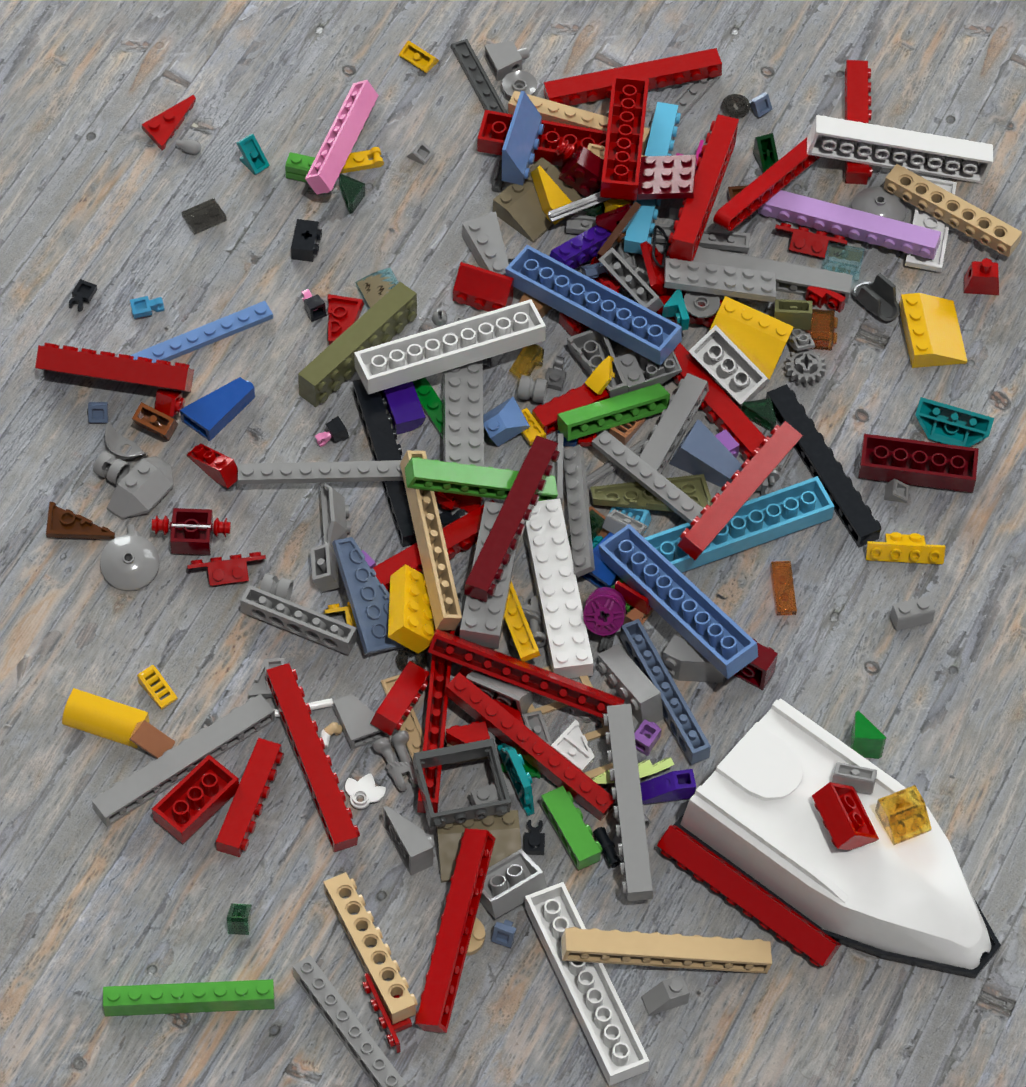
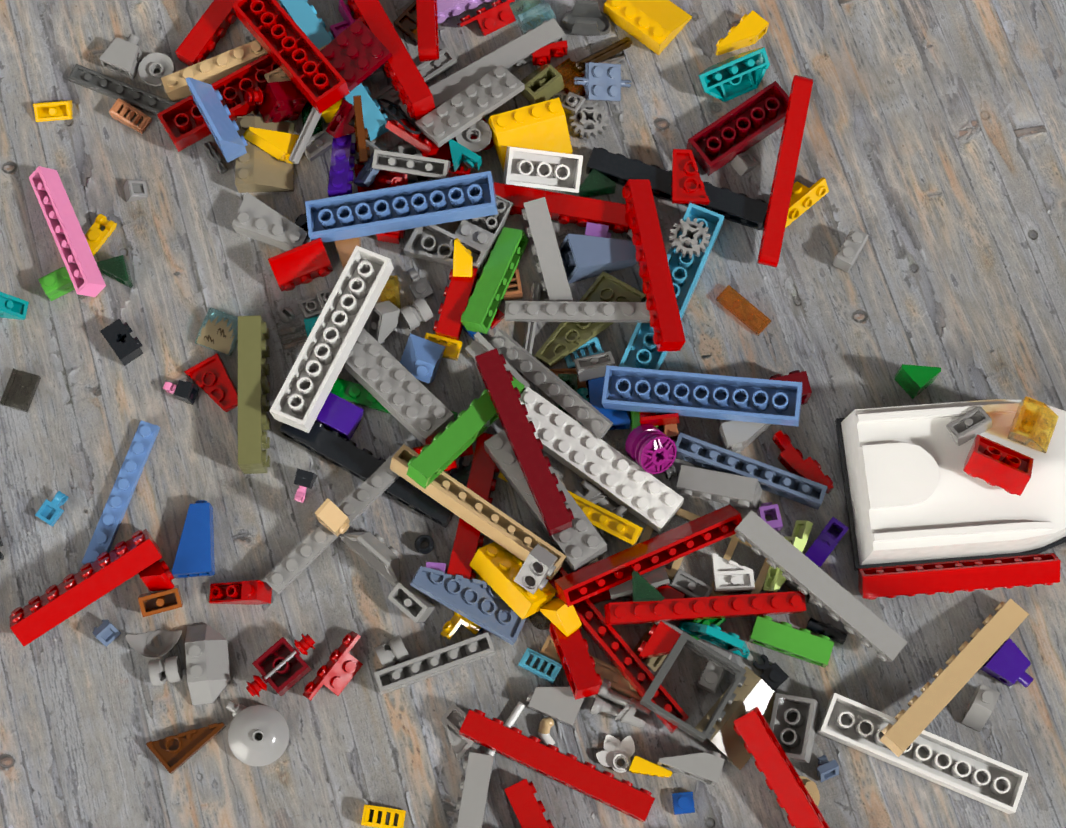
camera: 40 degrees left, 15 degrees up
(325, 456) = (332, 518): none -> tan slope
(371, 703) = (557, 666): none -> medium azure slope
(372, 814) = (645, 767): none -> yellow slope
(375, 537) = (424, 538): none -> black plate
(376, 864) = (683, 803): none -> blue plate
(419, 664) = (561, 616): none -> yellow slope
(429, 604) = (535, 569): none -> light grey brick
(467, 90) = (119, 110): none -> nougat slope
(493, 684) = (643, 590): none -> clear green slope
(502, 372) = (382, 320): none -> light grey slope
(709, 721) = (793, 462): none -> red slope
(719, 987) = (1008, 665): none -> dark purple torso
(788, 495) = (687, 245): none -> light grey gear
(832, 459) = (686, 179): none -> red wing
(842, 347) = (602, 82): none -> sand blue plate
(864, 329) = (603, 54): none -> dark brown axle
(915, 513) = (785, 171): none -> red beam
(994, 403) = (746, 33): none -> yellow slope

